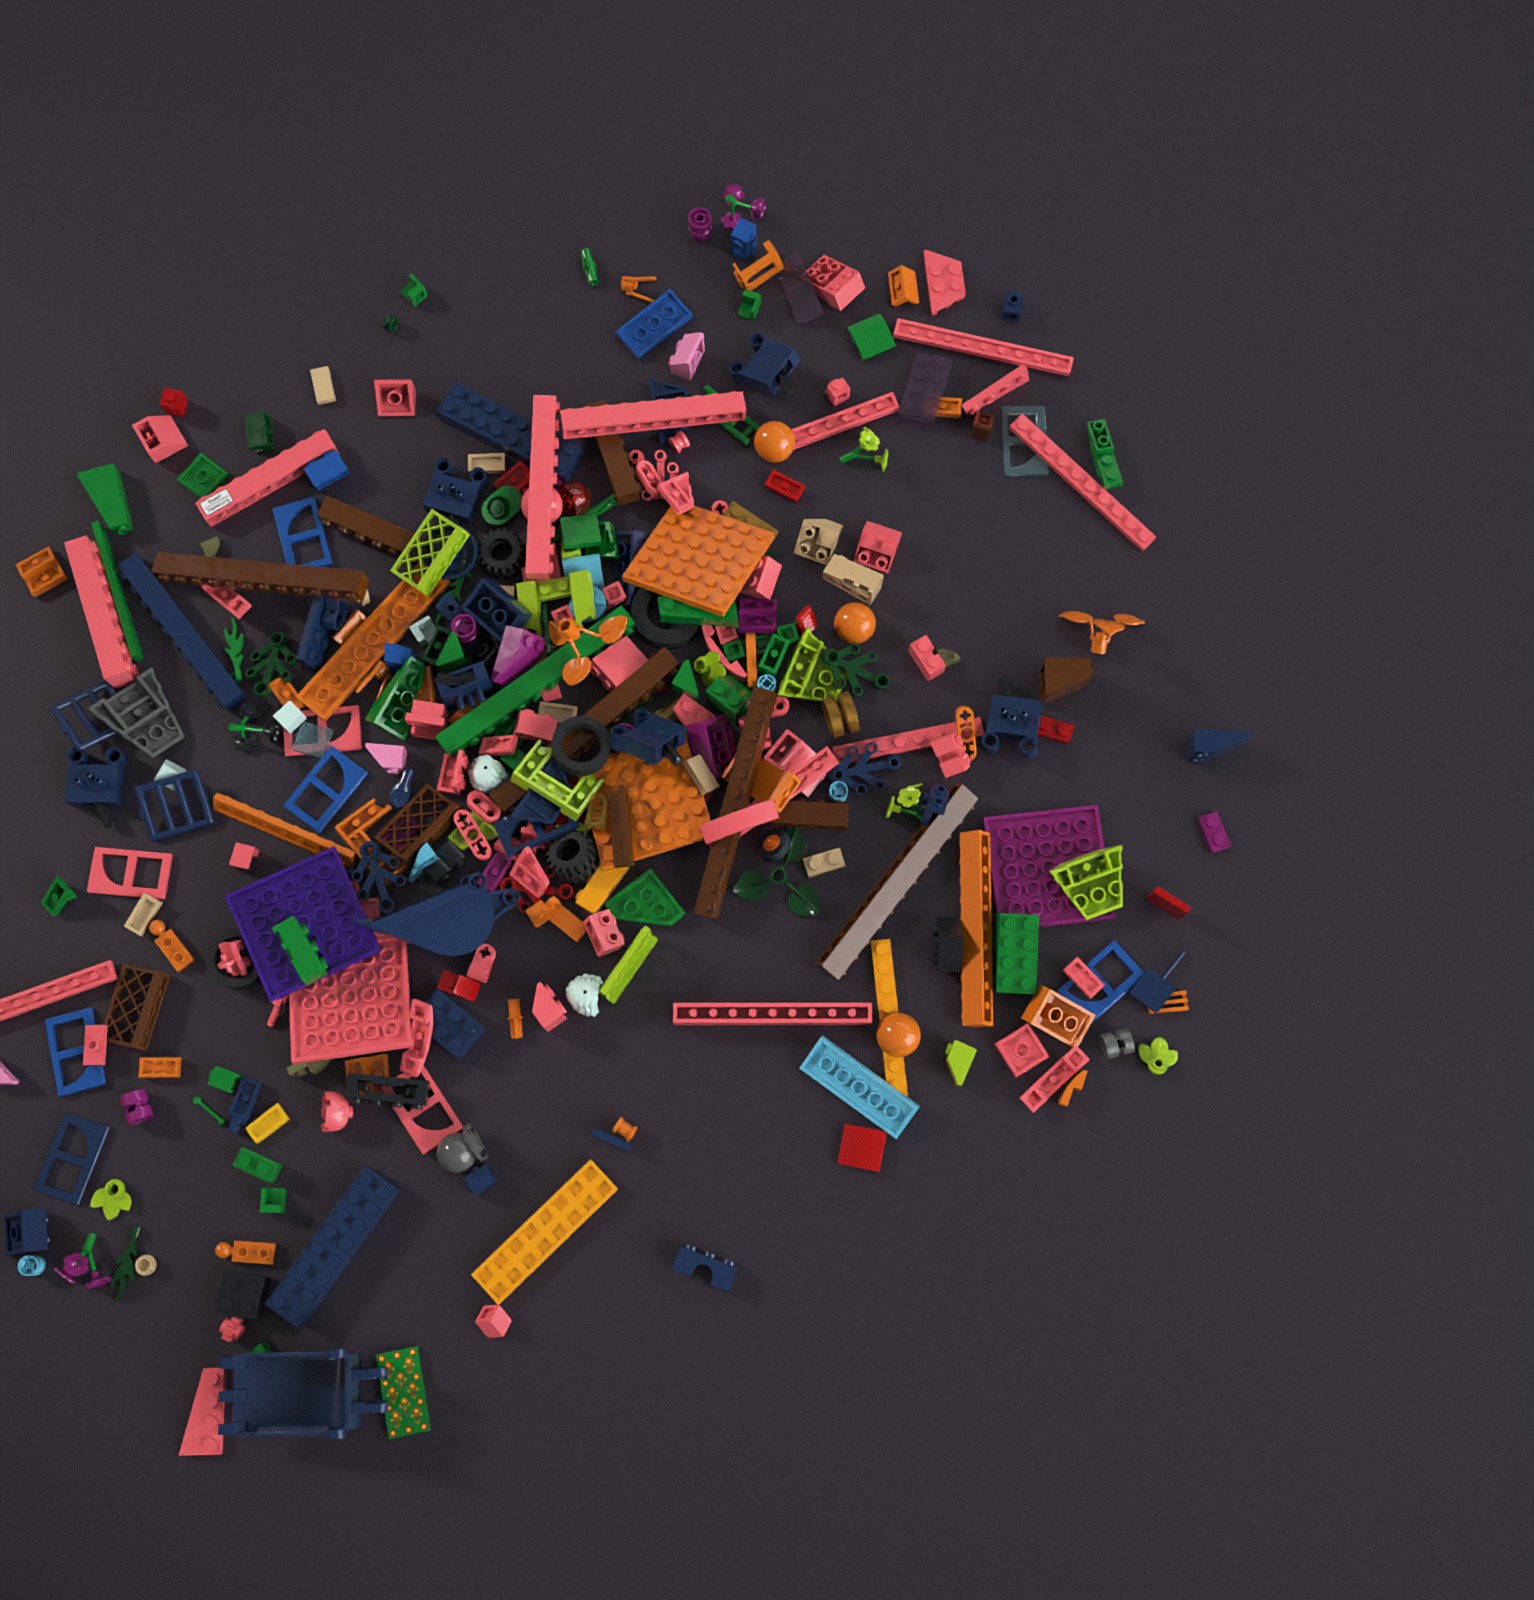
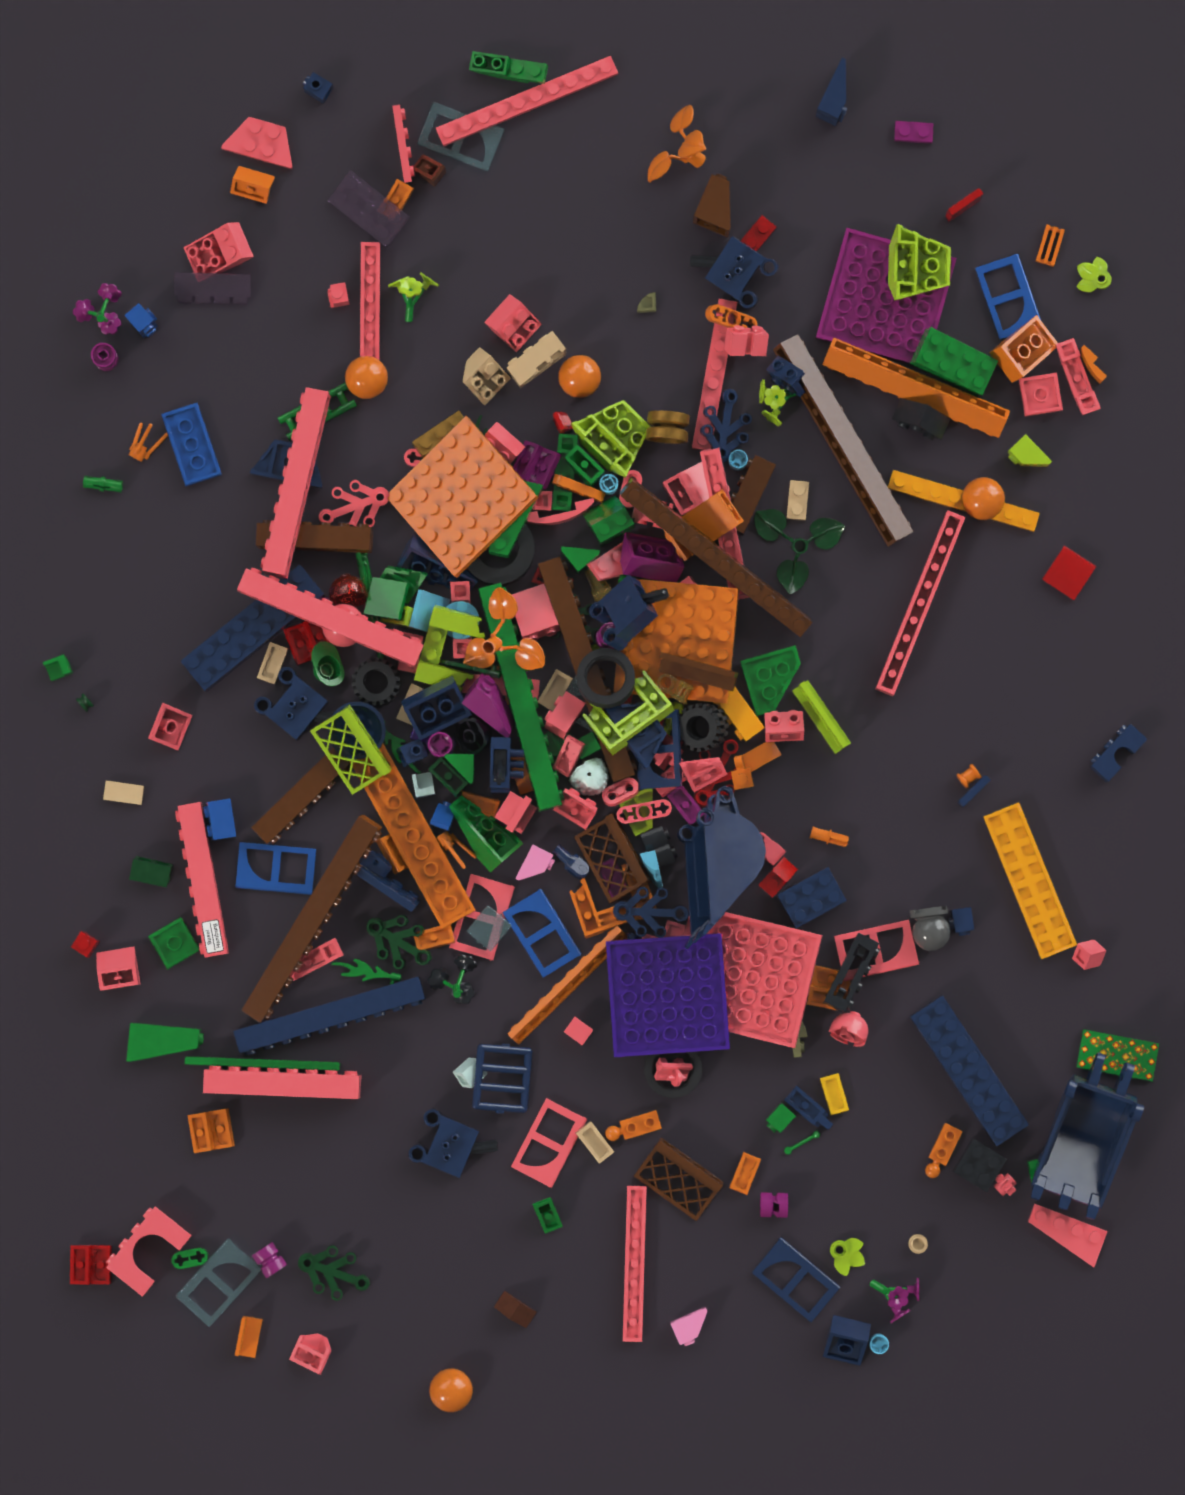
camera: 65 degrees left, 10 degrees up
(73, 701) = (406, 1128): dark blue bar -> none
(93, 1075) = (725, 1234): blue window -> none
(95, 1045) = (701, 1224): coral plate -> none
(128, 1263) = (912, 1260): dark green piece -> none
(141, 715) = (401, 1079): dark grey wedge -> none
(211, 546) = (252, 959): olive tile -> none
(257, 1164) = (869, 1113): green brick -> none
(273, 1200) = (906, 1111): green panel -> none
(278, 1004) = (737, 1053): coral bar -> none
(289, 717) = (459, 940): light aqua panel -> none
(301, 950) = (698, 1001): green wedge -> none
(422, 1029) = (811, 922): coral slope -> none
(546, 1009) = (834, 804): coral slope -> none
(584, 1003) = (828, 769): light aqua hair -> none
(648, 477) = (356, 512): coral plate -> none
(677, 493) = (385, 491): coral wing -> none
(678, 442) = (328, 469): coral wheel -> none
(687, 356) = (241, 425): bright pink slope -> none
(701, 775) = (676, 578): tan tile -> none
(709, 667) = (572, 529): lime plate -> none
(739, 821) = (740, 560): coral slope -> none
(750, 305) = (210, 343): green panel -> none
(768, 367) = (290, 352): dark blue piece -> none
(771, 257) = (181, 301): orange panel -> none
(773, 845) = (764, 539): black wheel -> none
(784, 486) = (415, 386): red plate -> none
(851, 668) = (625, 398): dark green plant -> none
(859, 1087) = (1015, 552): medium azure plate -> none
(871, 336) = (292, 237): green slope -> none
(929, 664) = (644, 325): coral brick -> none
(983, 347) = (348, 134): coral plate -> none
(1083, 977) = (999, 311): coral plate -> none
(1110, 1045) = (1069, 314): flat silver wheel -> none
(1154, 989) = (1034, 252): dark blue piece -> none

